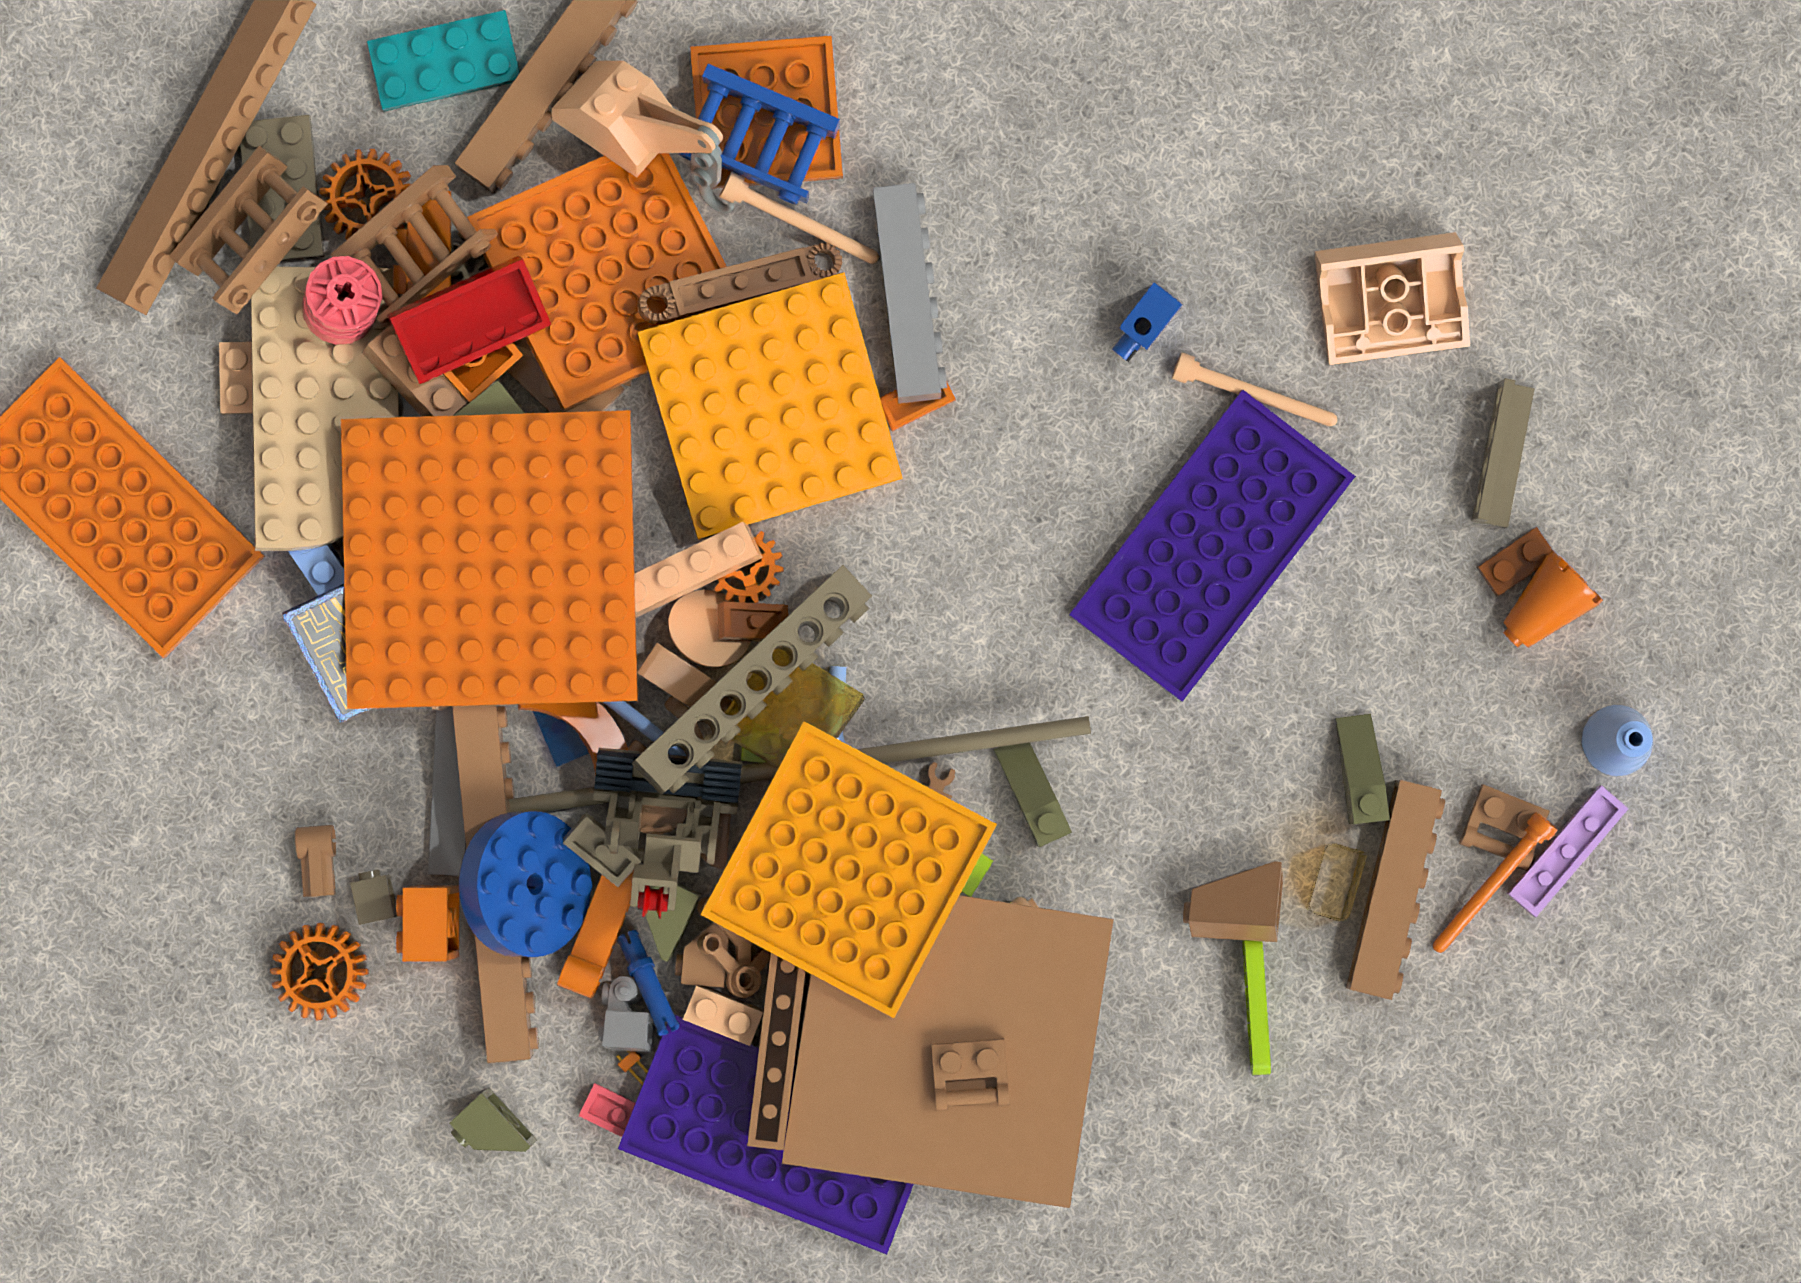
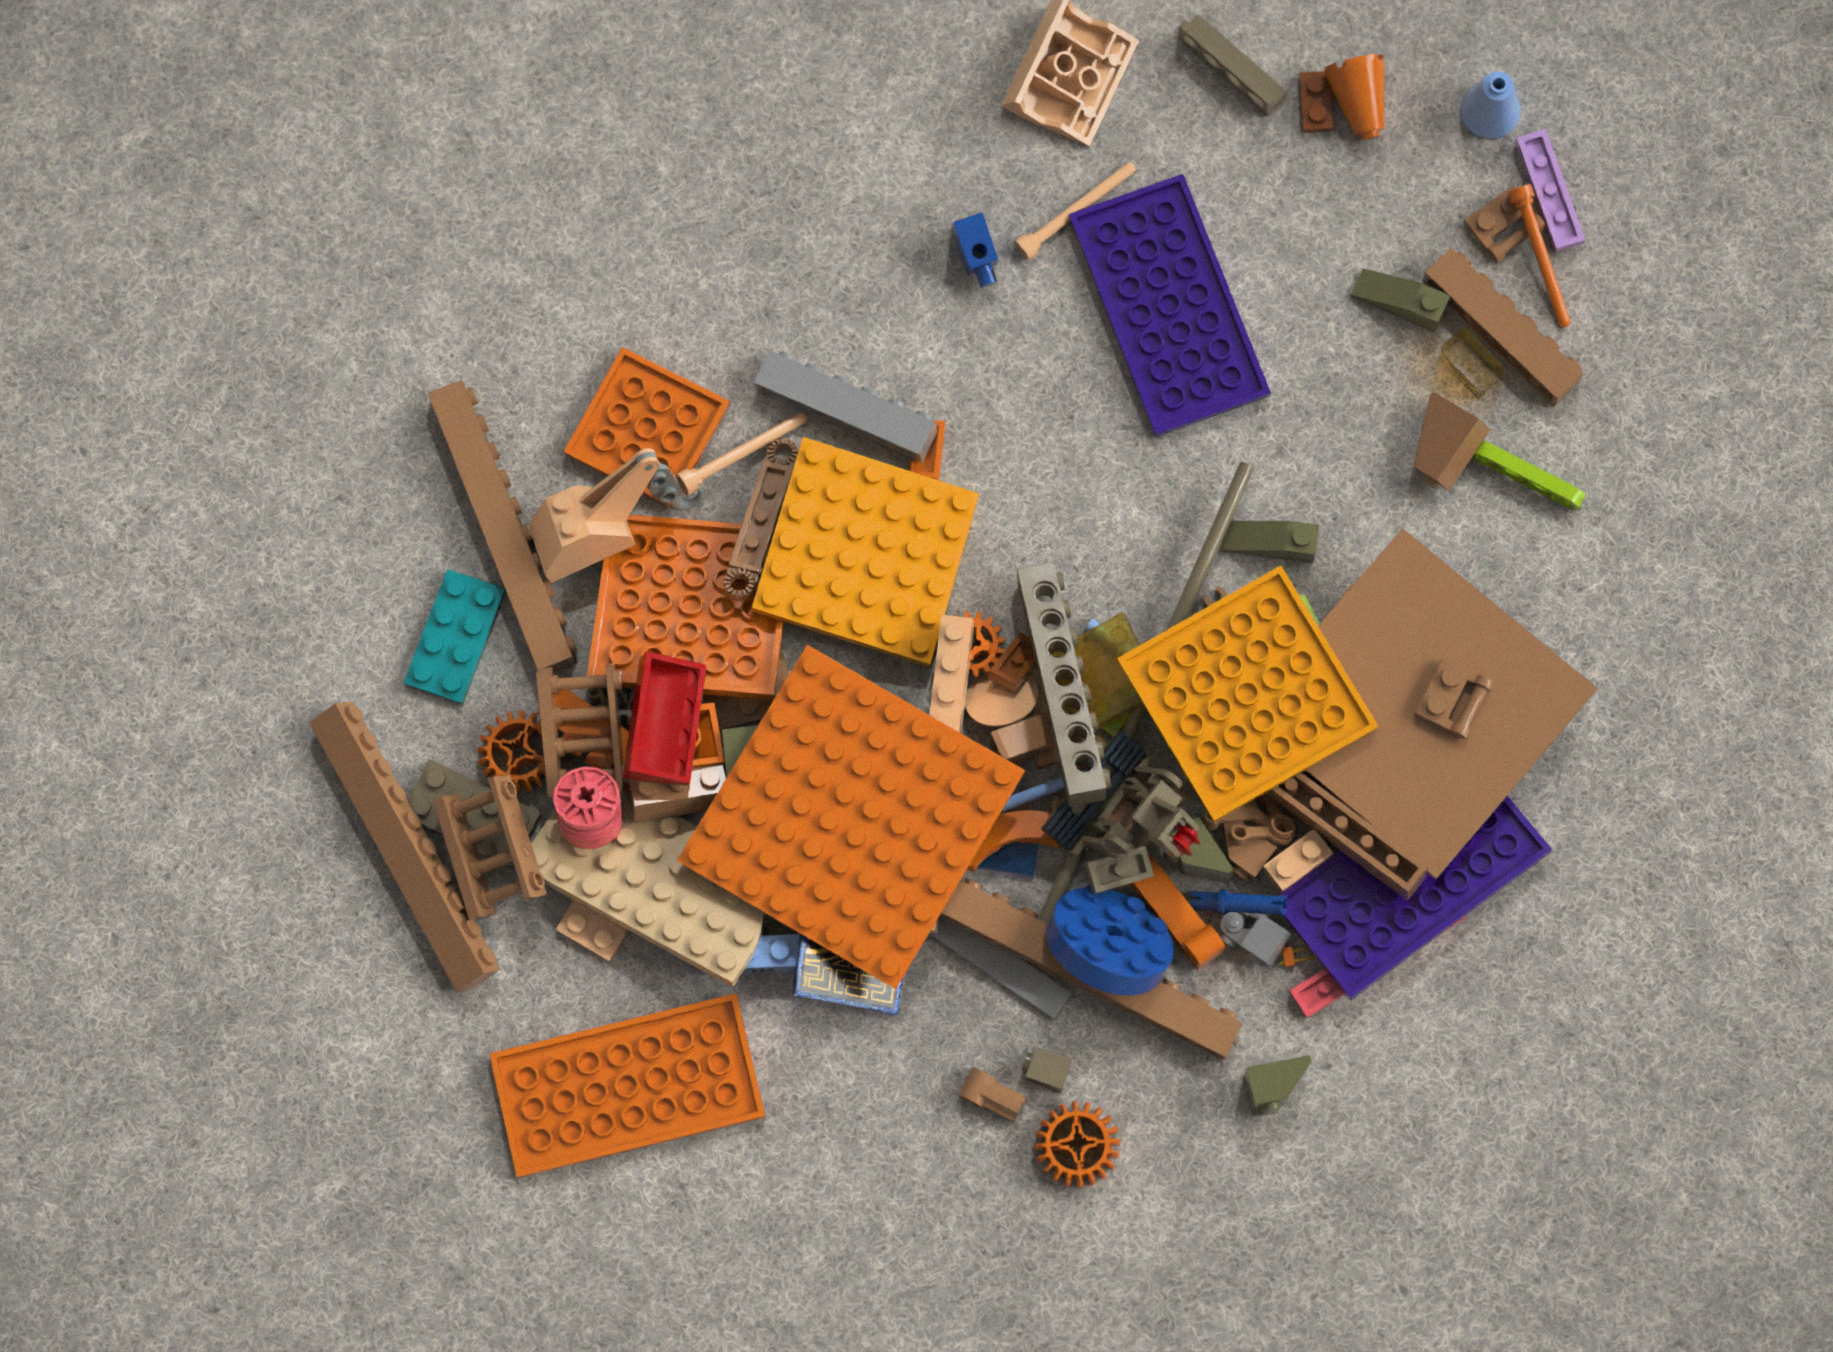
camera: 45 degrees left, 10 degrees down
(429, 923) = (1093, 1030): orange brick -> none
(785, 112) = (658, 409): blue fence -> none

